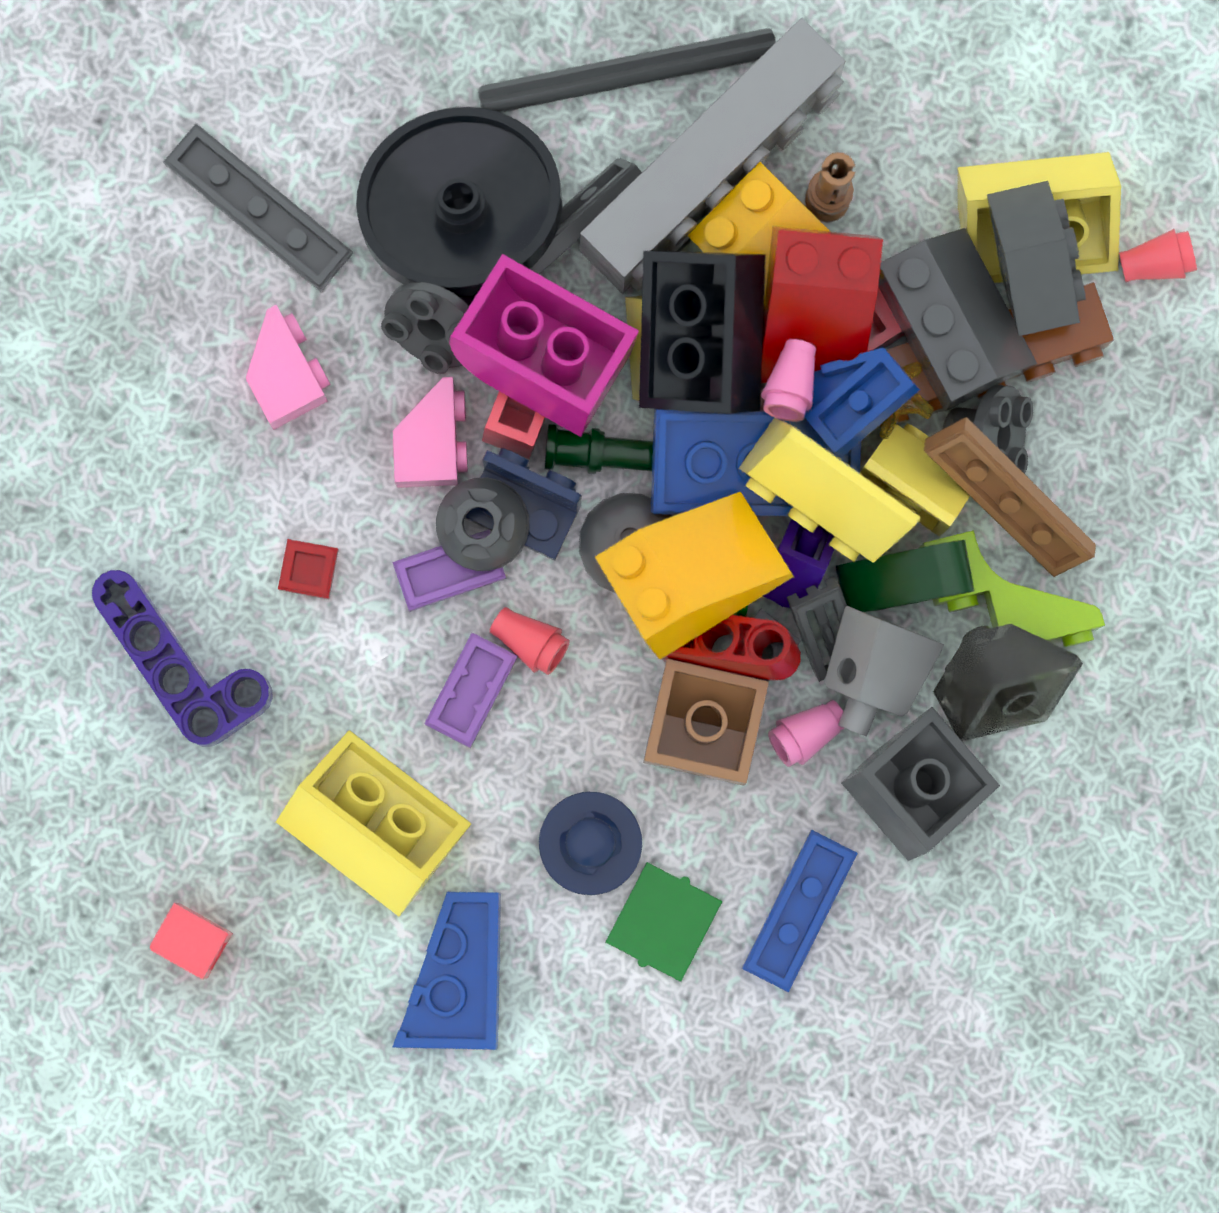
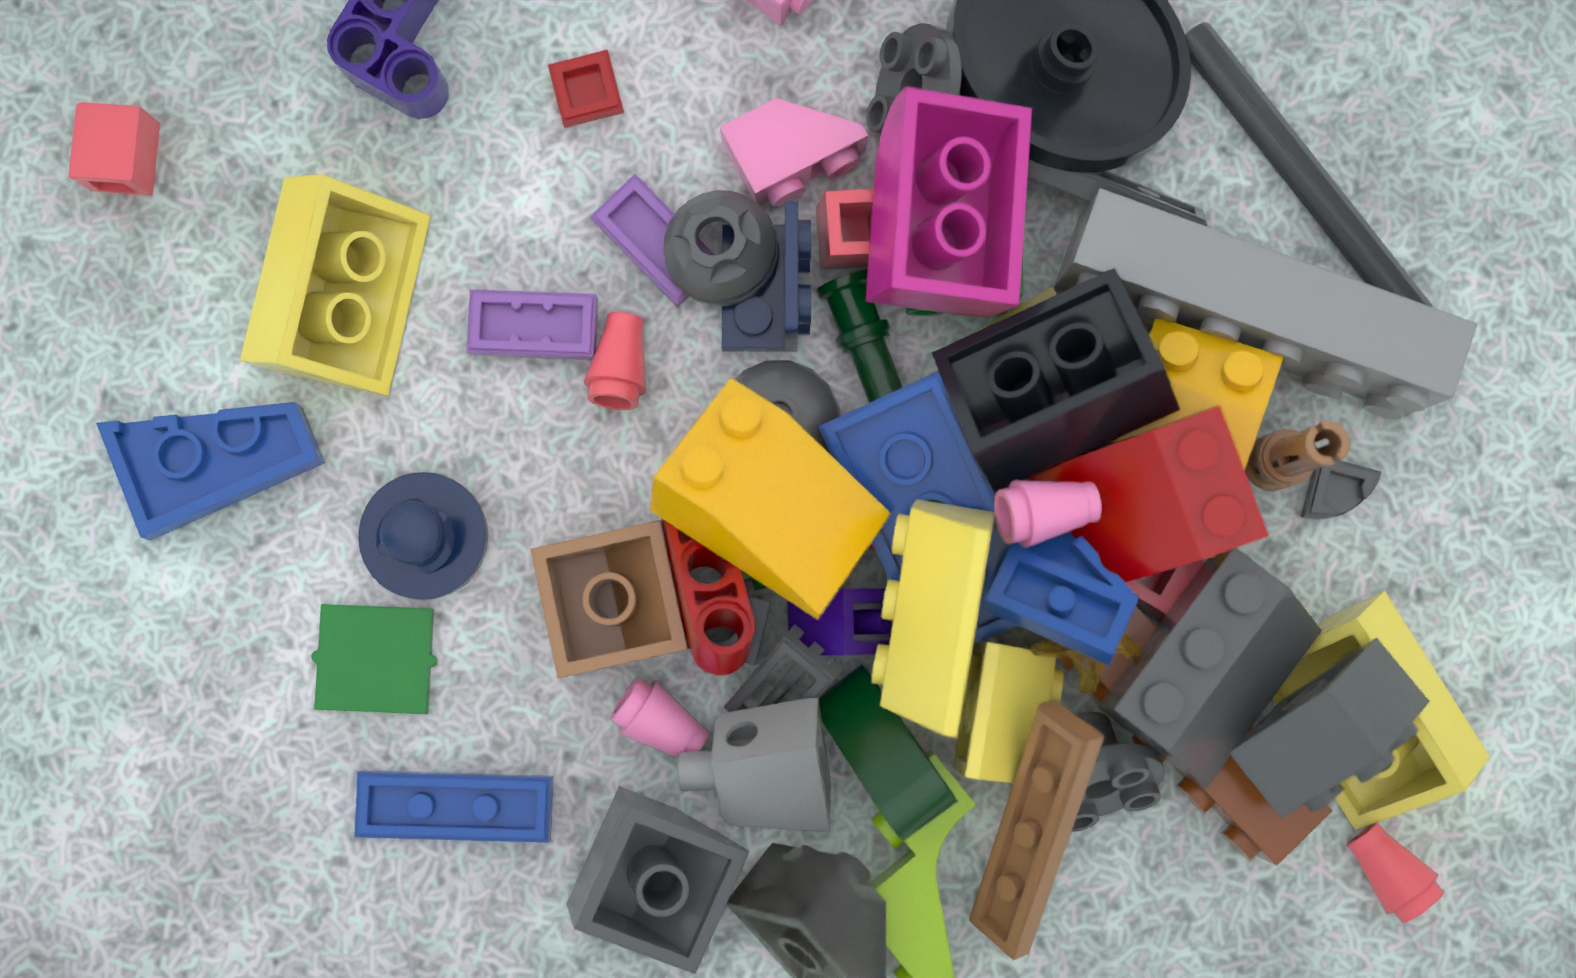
camera: 70 degrees right, 0 degrees up
(870, 161) = (1338, 489): none -> dark grey tile

